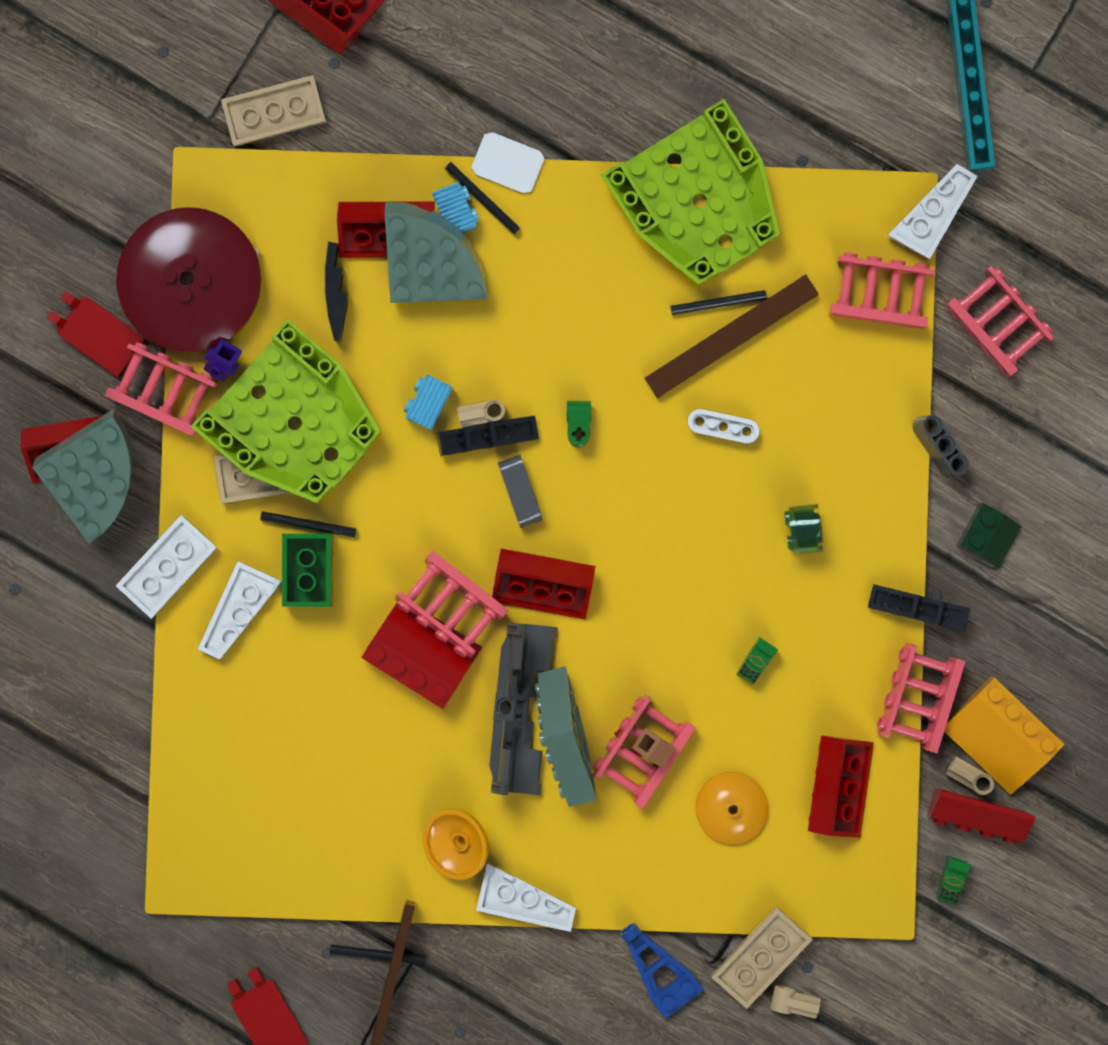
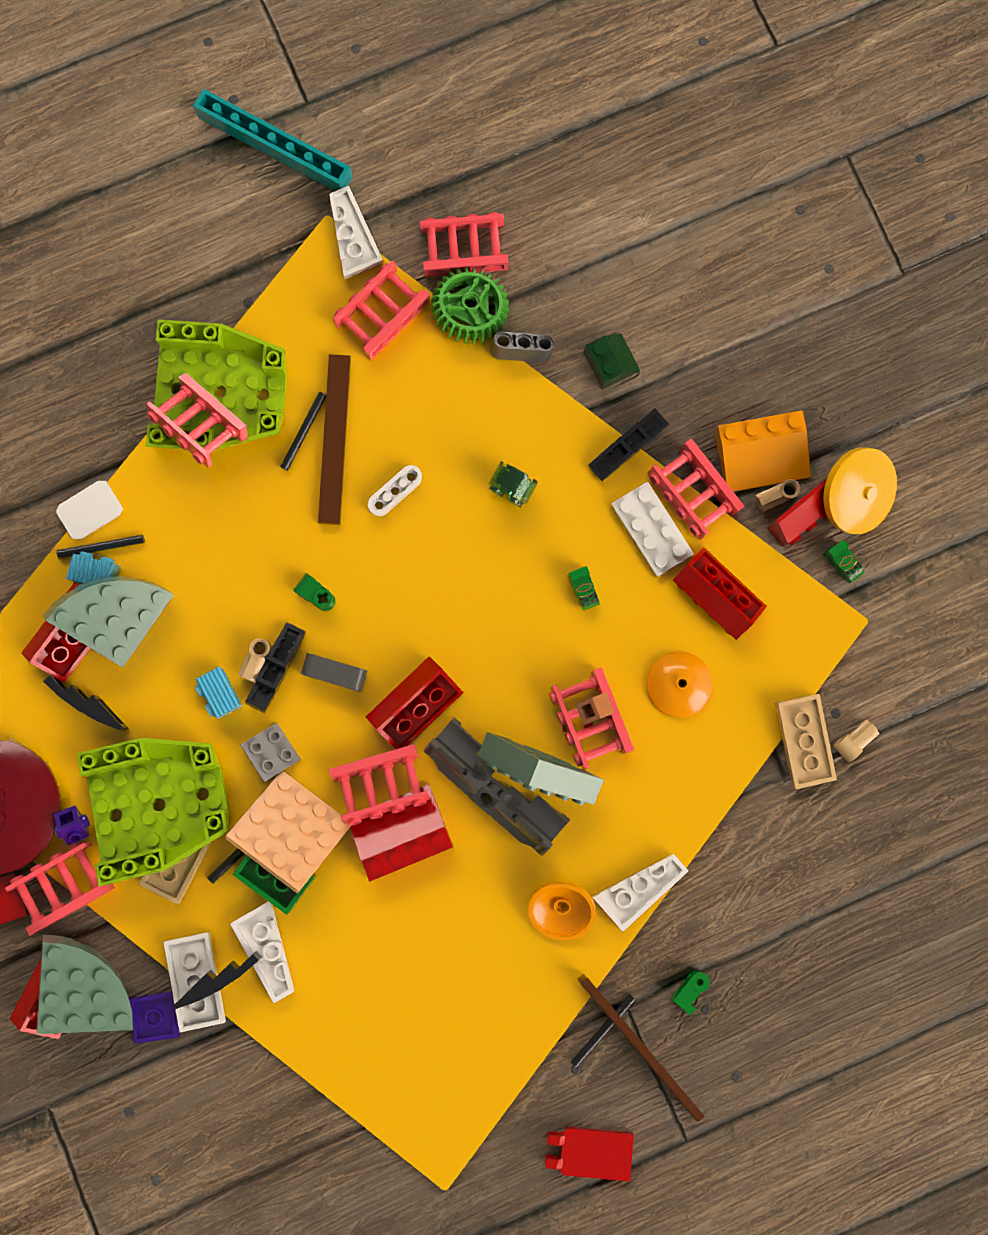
camera: 60 degrees left, 5 degrees down
(110, 554) = (154, 1017): none -> dark purple tile
(176, 583) = (211, 983): none -> black slope
(354, 555) = (288, 831): none -> light nougat plate
(409, 486) = (270, 752): none -> light grey hinge
(467, 1005) = (690, 989): none -> green leg
(676, 992) = (788, 824): blue plate -> none
(678, 197) = (203, 401): none -> coral fence
(855, 684) = (652, 529): none -> white plate
(937, 386) = (478, 319): none -> bright green gear
(1026, 849) = (860, 490): none -> yellow dish

